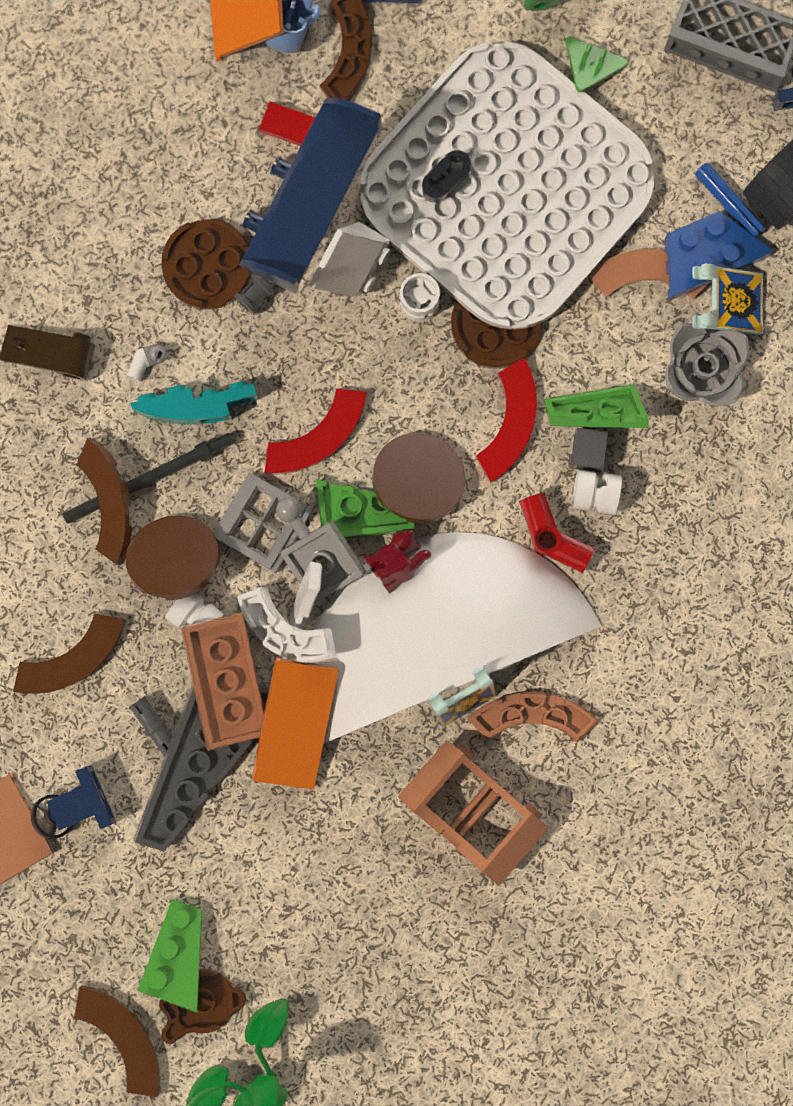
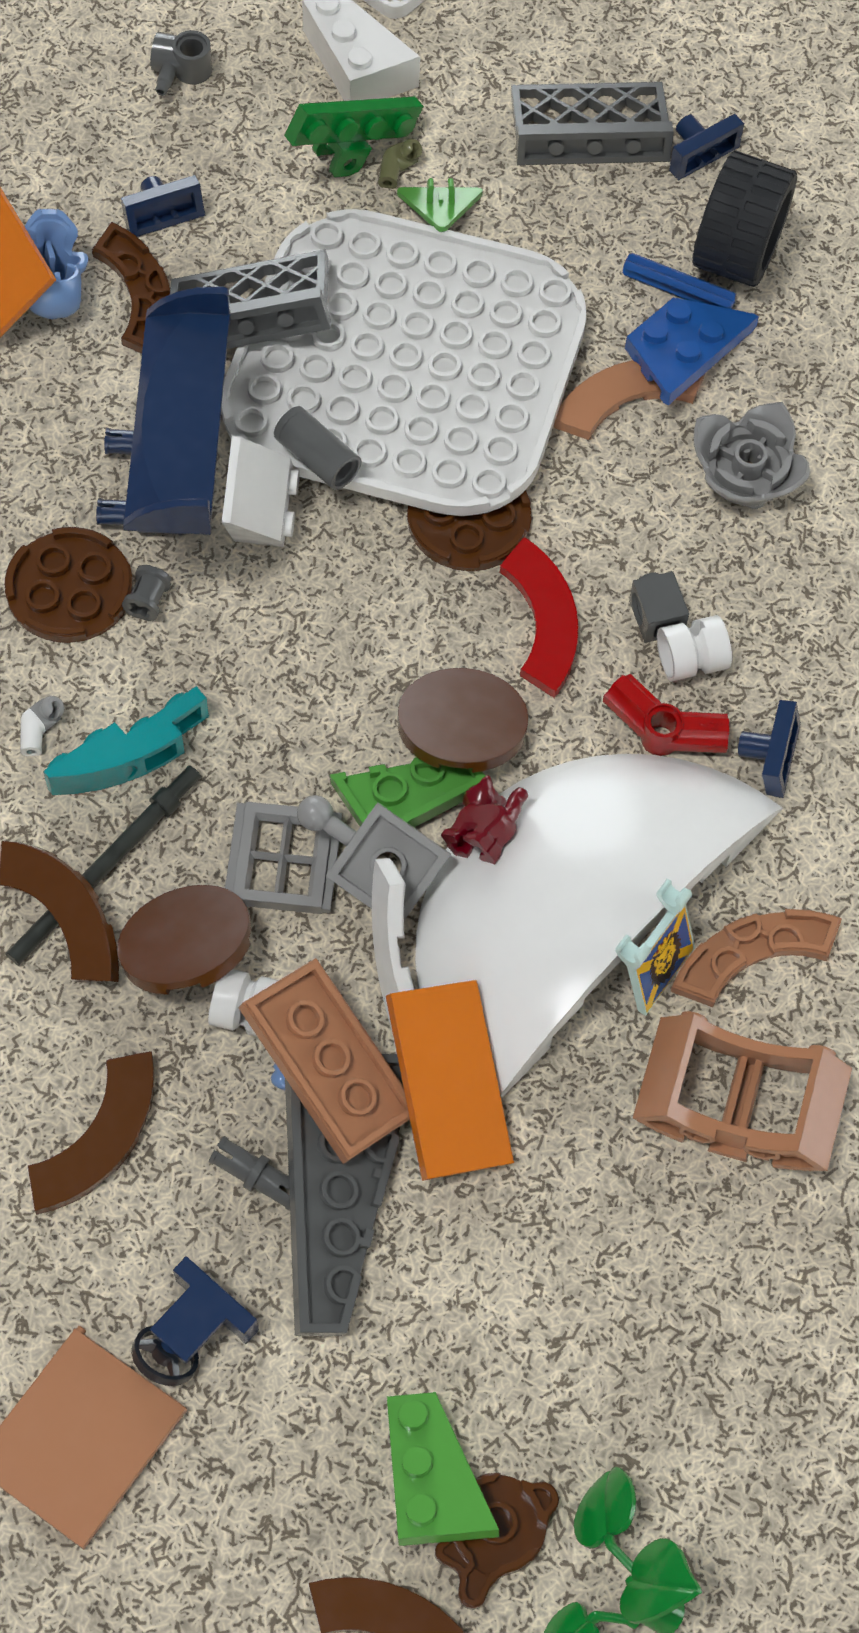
camera: 30 degrees left, 20 degrees down
(280, 635) = (375, 975): white tile -> none
(285, 123) = (102, 394): red tile -> none
(322, 440) = (312, 733): red tile -> none
(406, 114) = (269, 310): none -> dark grey fence
(408, 238) = (317, 448): none -> dark grey pin
(419, 297) = (361, 514): white wheel -> none
(450, 181) = (322, 367): black beam -> none
(576, 13) = (396, 160): none -> olive arm
(600, 408) = (645, 554): bright green wing -> none
(615, 585) = (774, 748): none -> dark blue tile
(735, 300) = (743, 374): flag -> none

